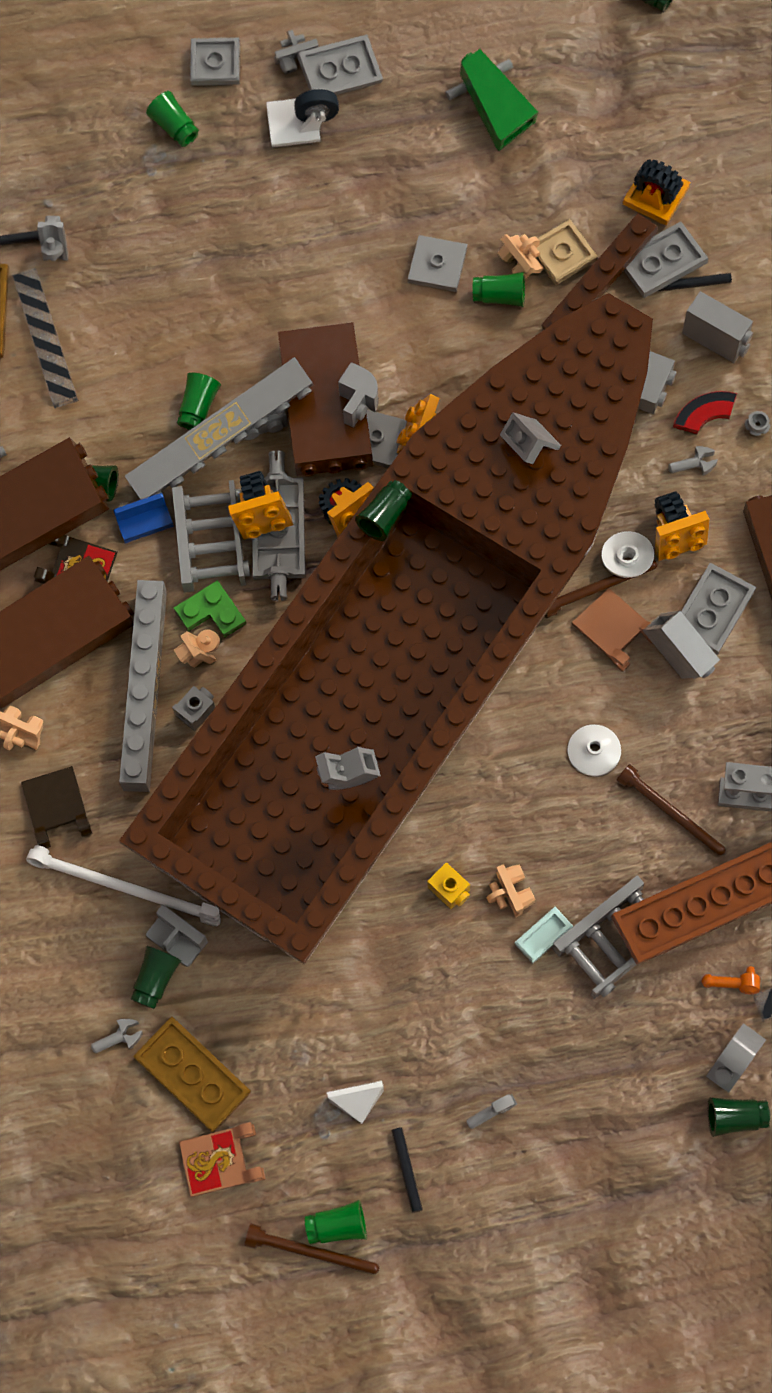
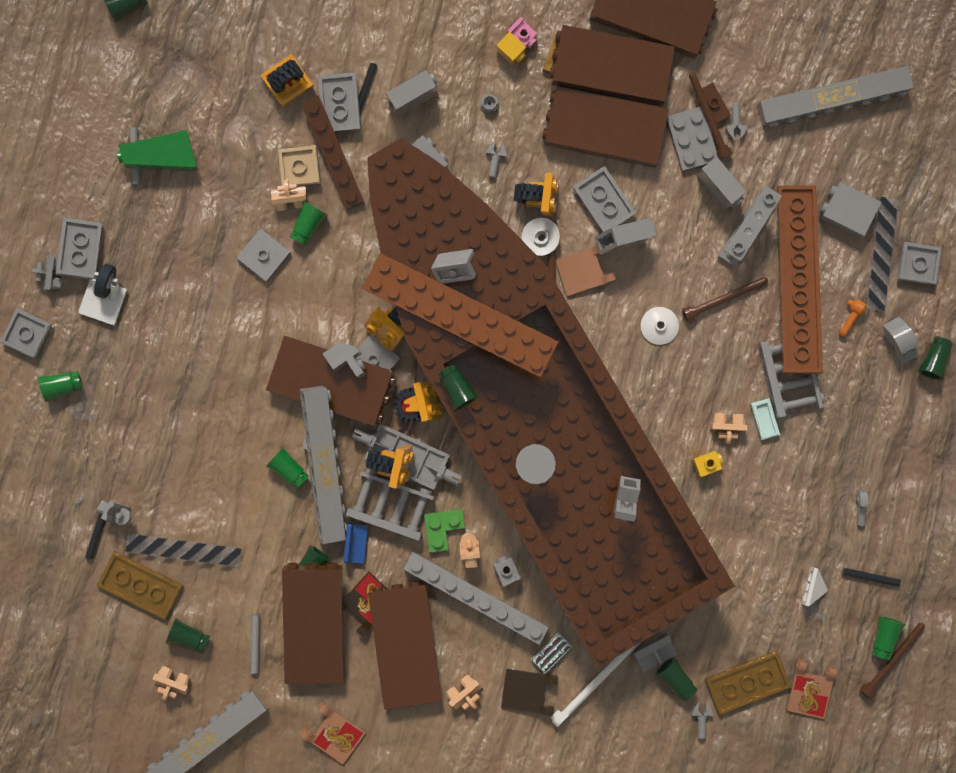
camera: 75 degrees left, 15 degrees up
(114, 809) = (551, 652): none -> tile
(337, 645) = (535, 464): none -> light grey tile
(475, 478) = (460, 315): none -> dark orange plate
(704, 409) = (461, 132): red tile -> none

